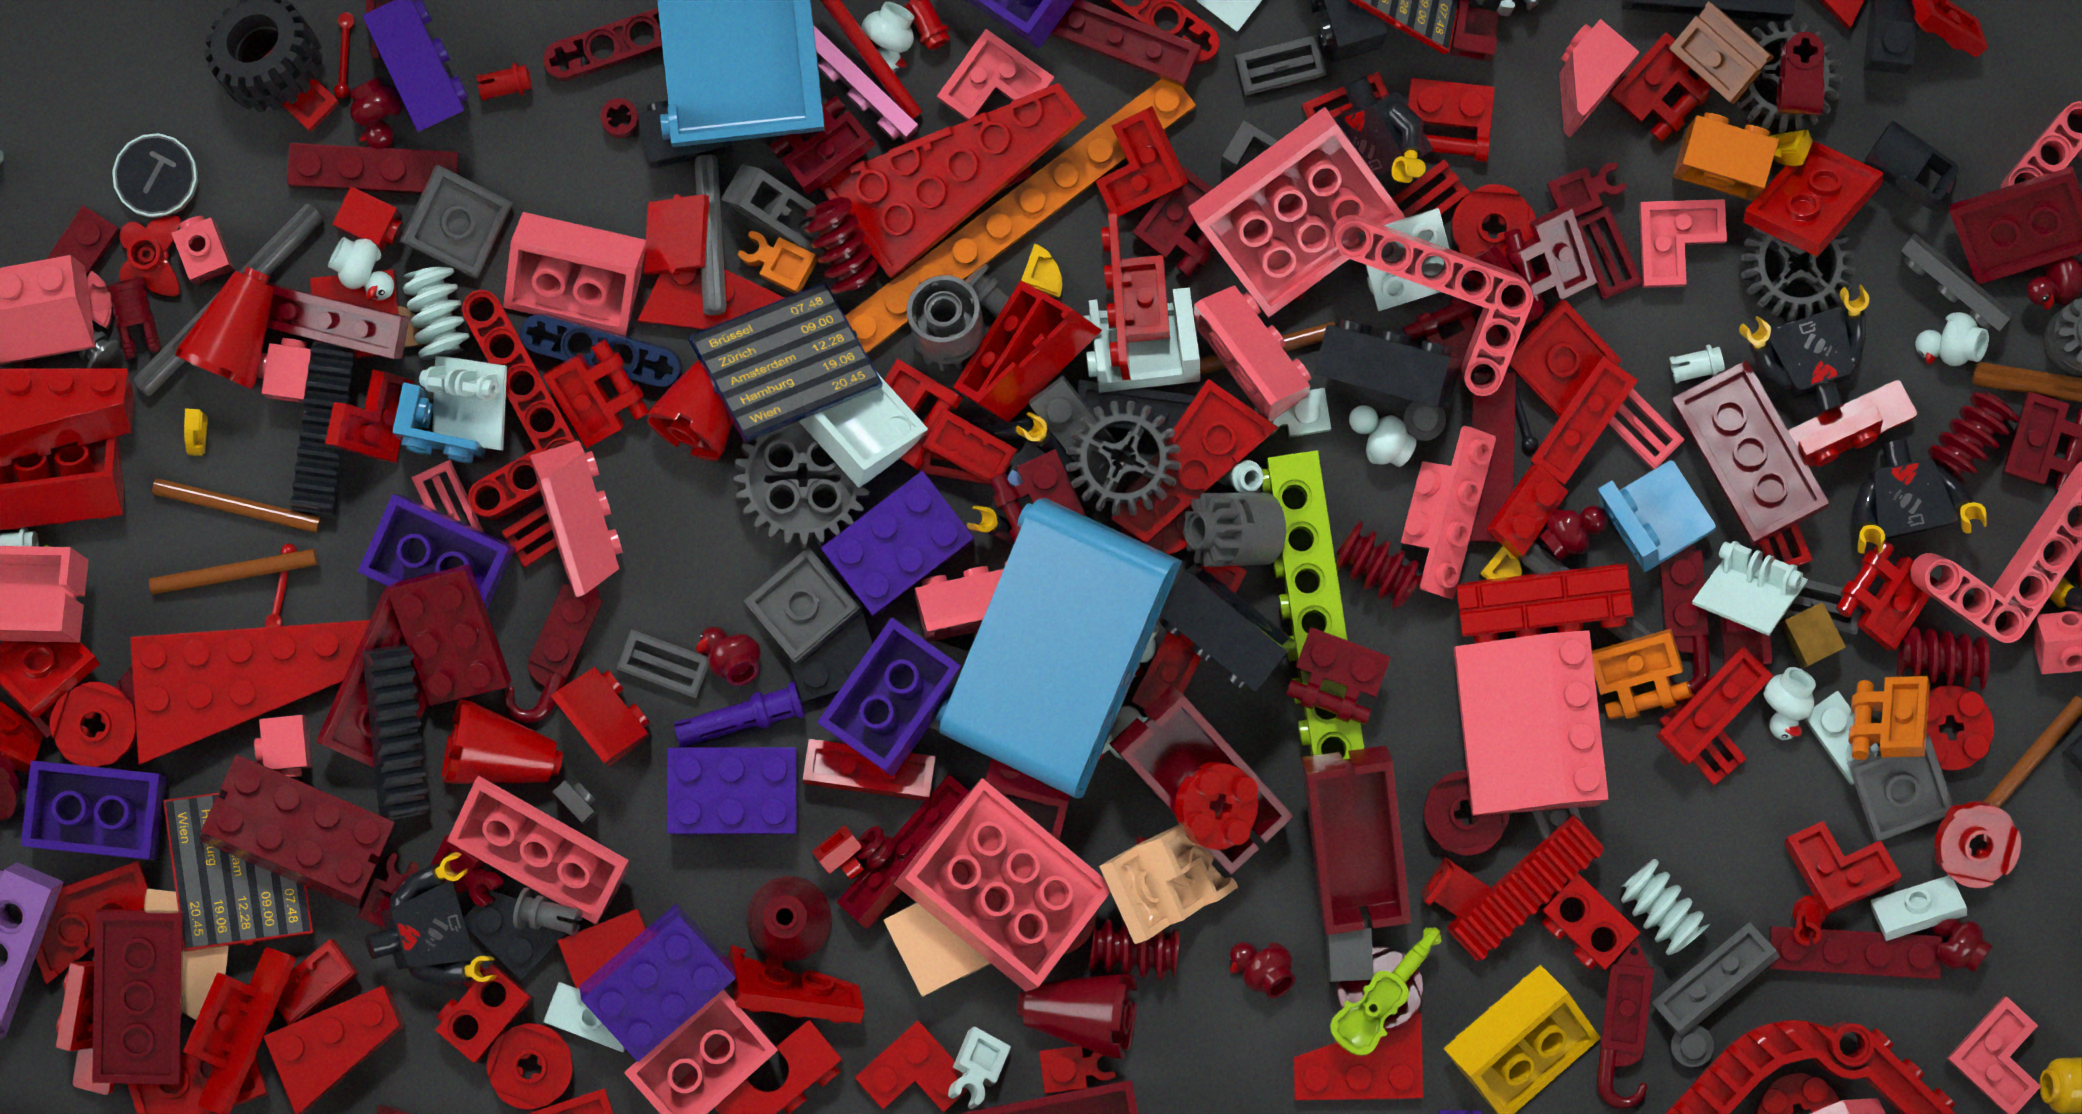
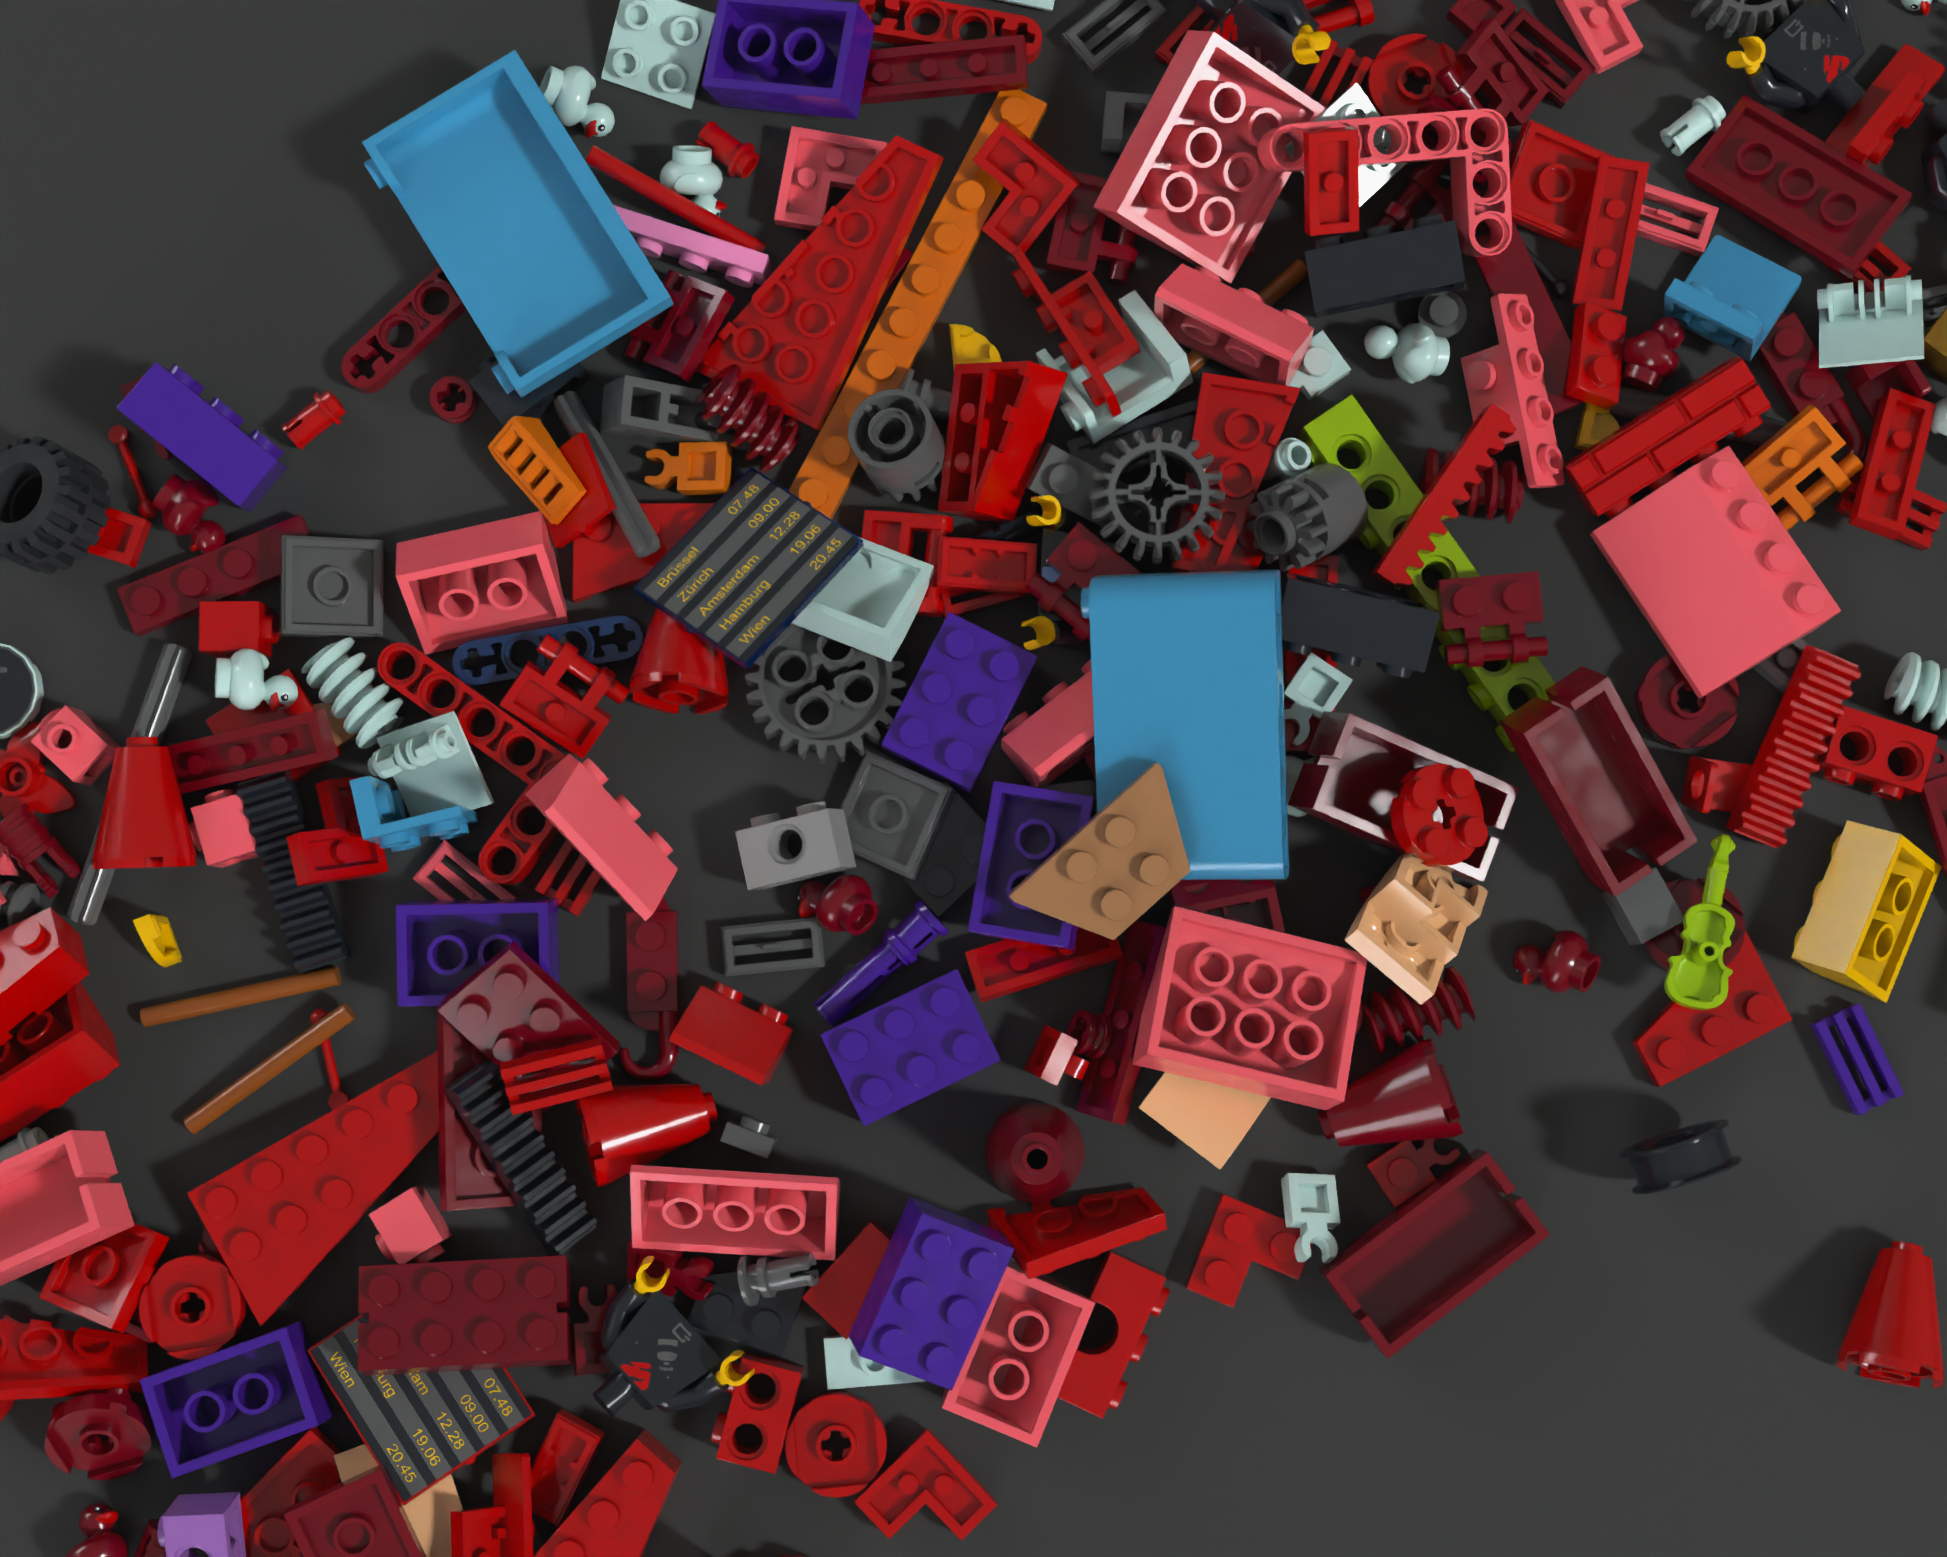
camera: 20 degrees left, 0 degrees up
(452, 697) = (559, 1093): none -> red tile
(652, 180) = (514, 448): none -> orange slope
(692, 594) = (766, 852): none -> light grey brick
(950, 722) = (1113, 863): none -> medium nougat wing
(1173, 666) = (1313, 690): none -> light aqua plate
(1336, 565) = (1447, 488): none -> red gear
(1371, 281) = (1331, 180): none -> red plate

